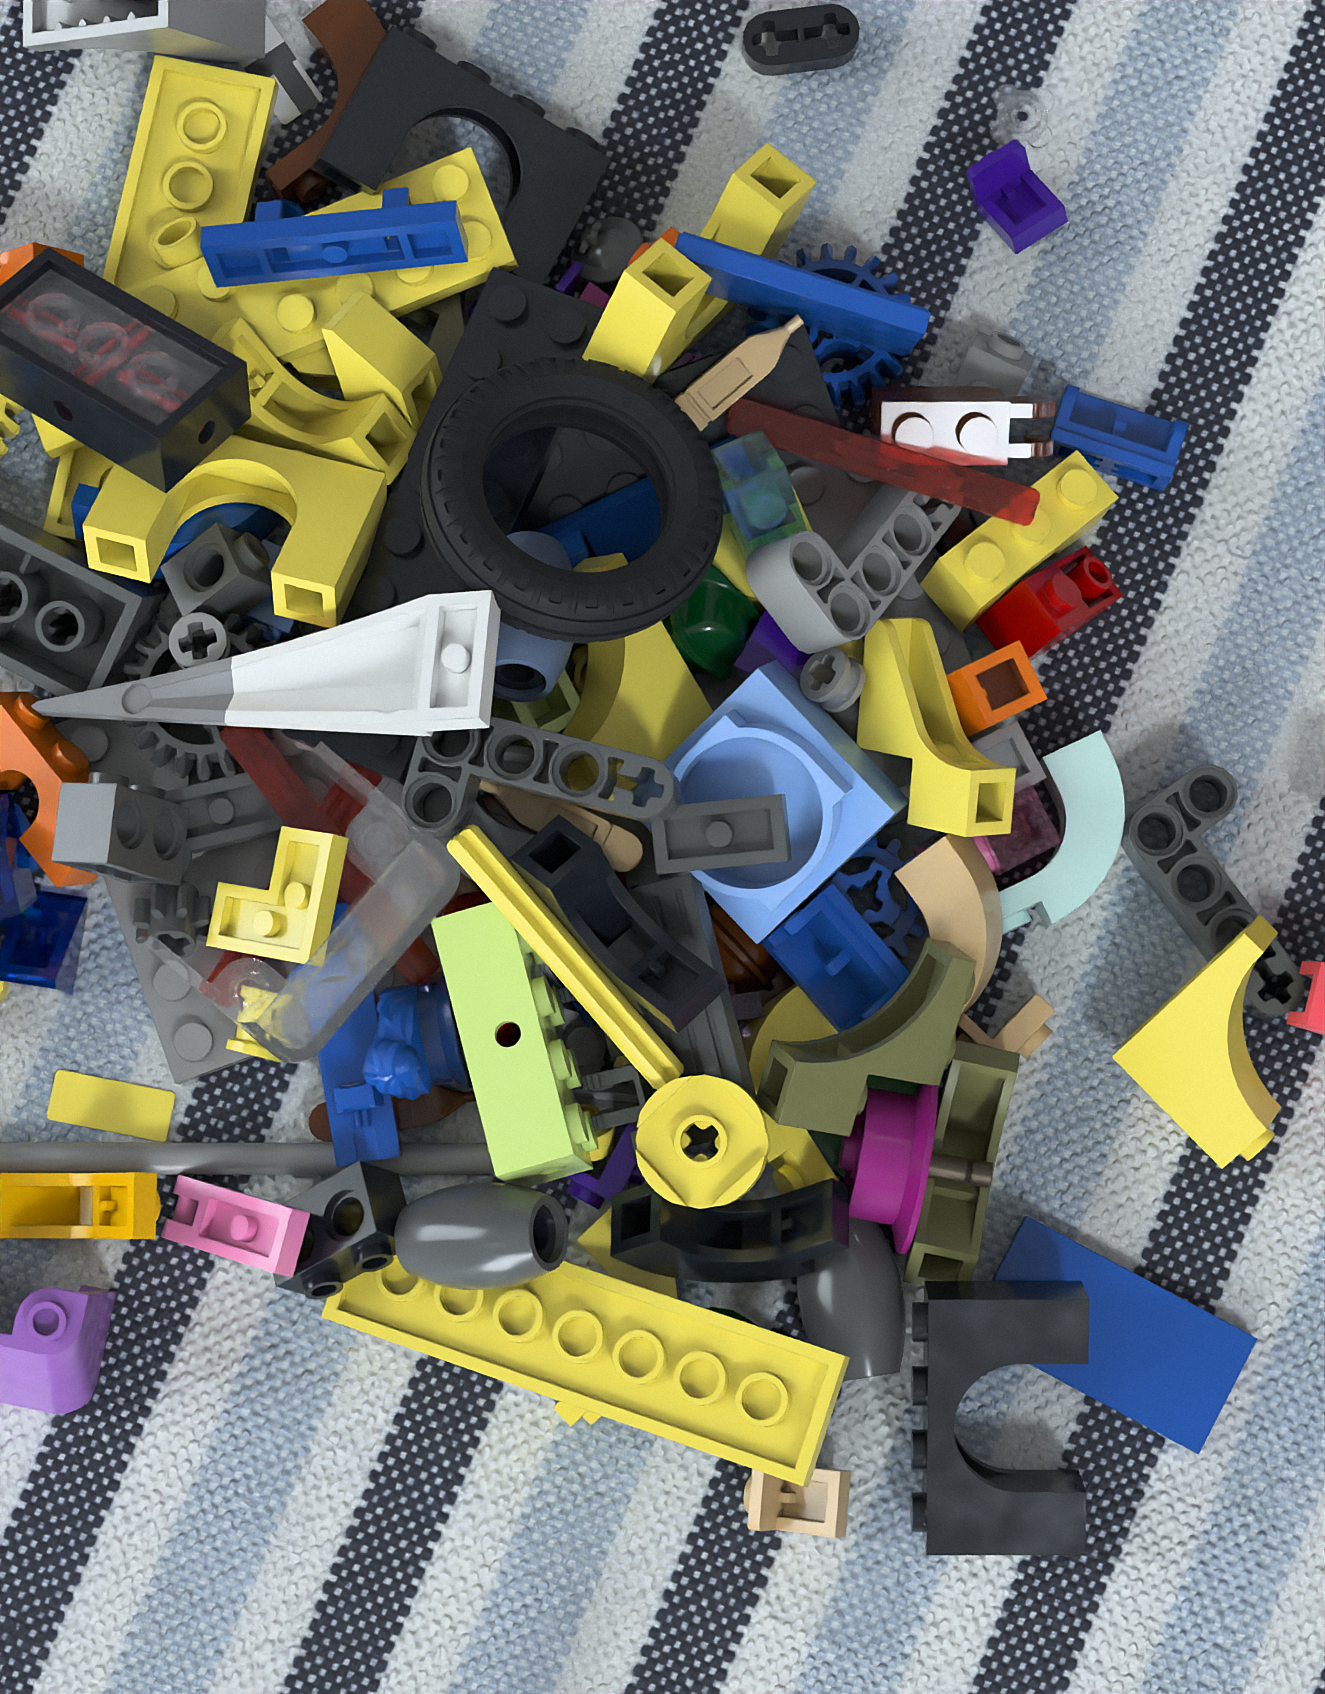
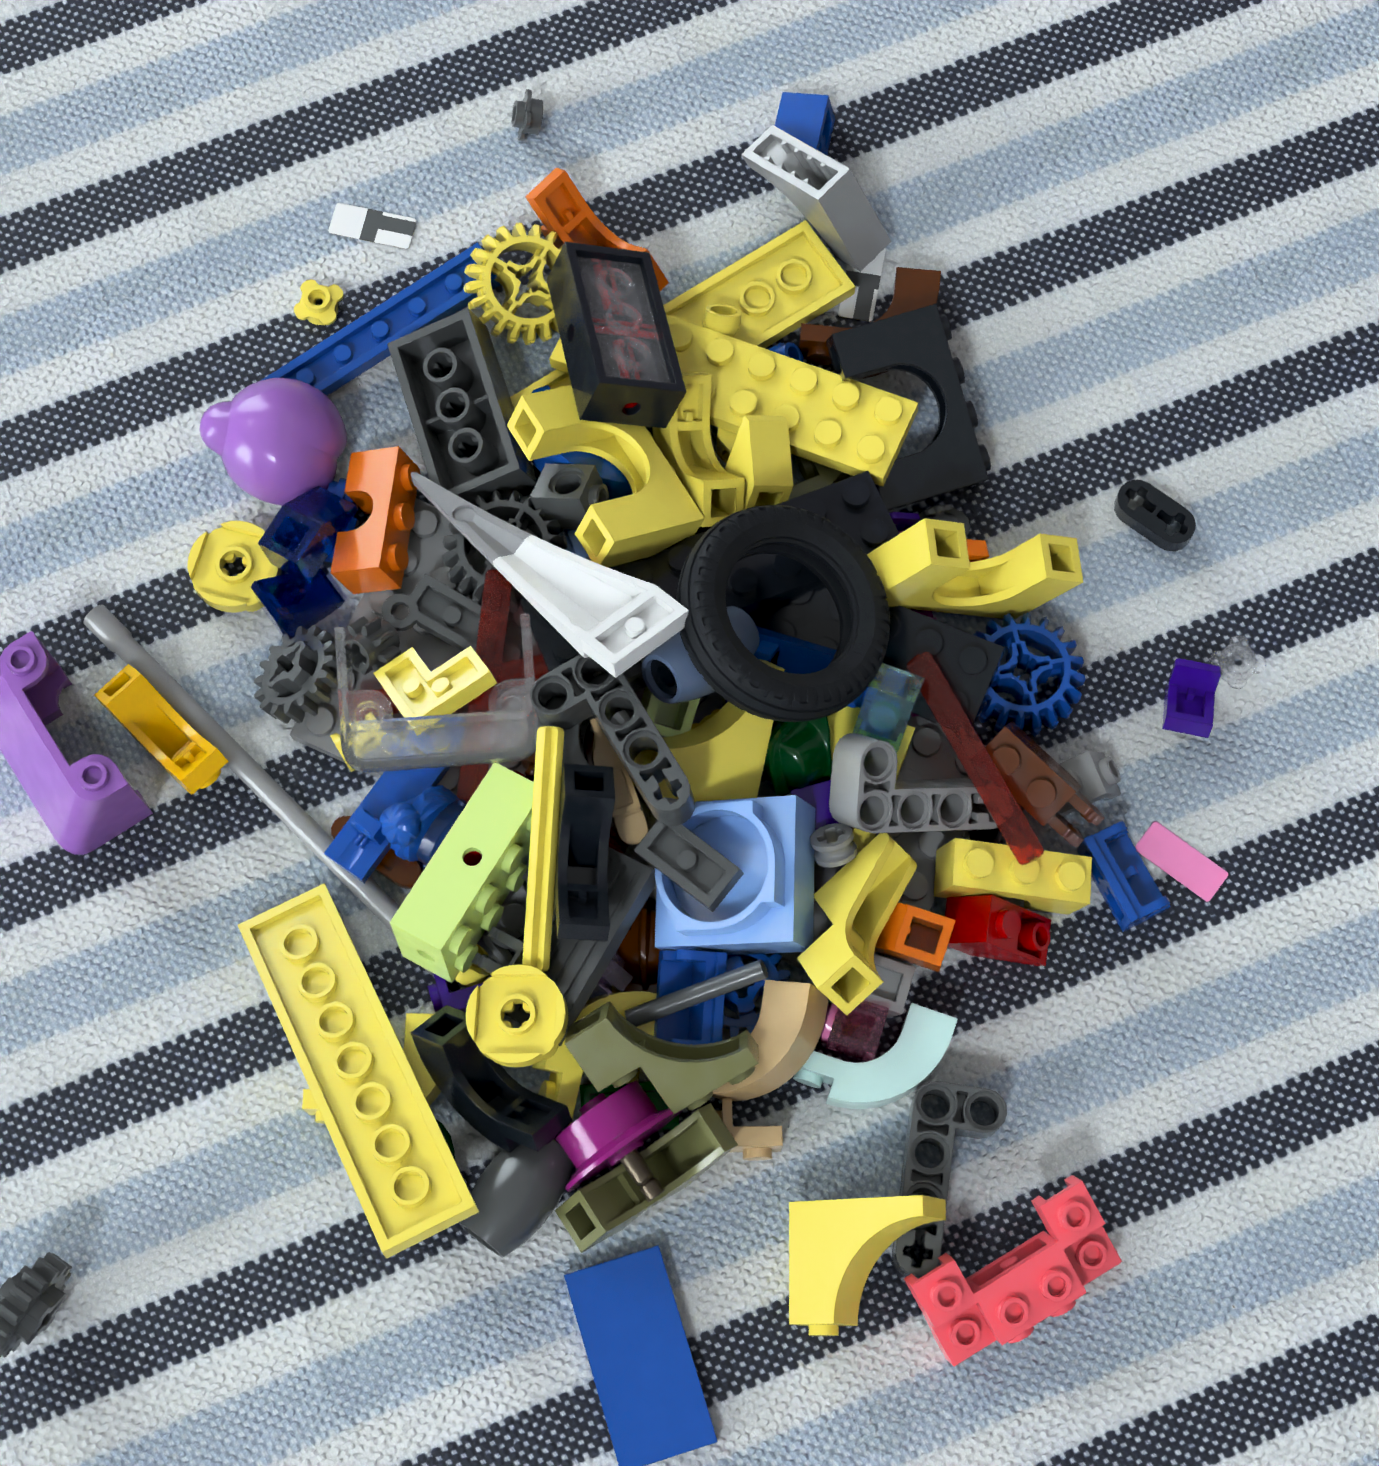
camera: 40 degrees right, 10 degrees down
(111, 1105) = (247, 718): light yellow sticker -> none
(120, 830) = (387, 569): dark grey brick -> none
(127, 1016) = (298, 675): none -> dark grey gear
(182, 636) = (520, 504): light grey bush -> none
(236, 1226) = (242, 832): bright pink plate -> none
(334, 243) = (797, 383): blue hinge -> none
(346, 1230) = (290, 885): black brick -> none
(481, 1236) = (355, 955): dark grey piece -> none
(735, 374) = (937, 639): tan piece -> none
(796, 1508) = (384, 1281): tan bracket -> none
(815, 298) = (1015, 630): blue tile -> none
(844, 950) = (697, 993): none -> dark grey bar
(965, 1335) = (468, 1364): black arch -> none
(1152, 368) = (1181, 861): none -> bright pink sticker

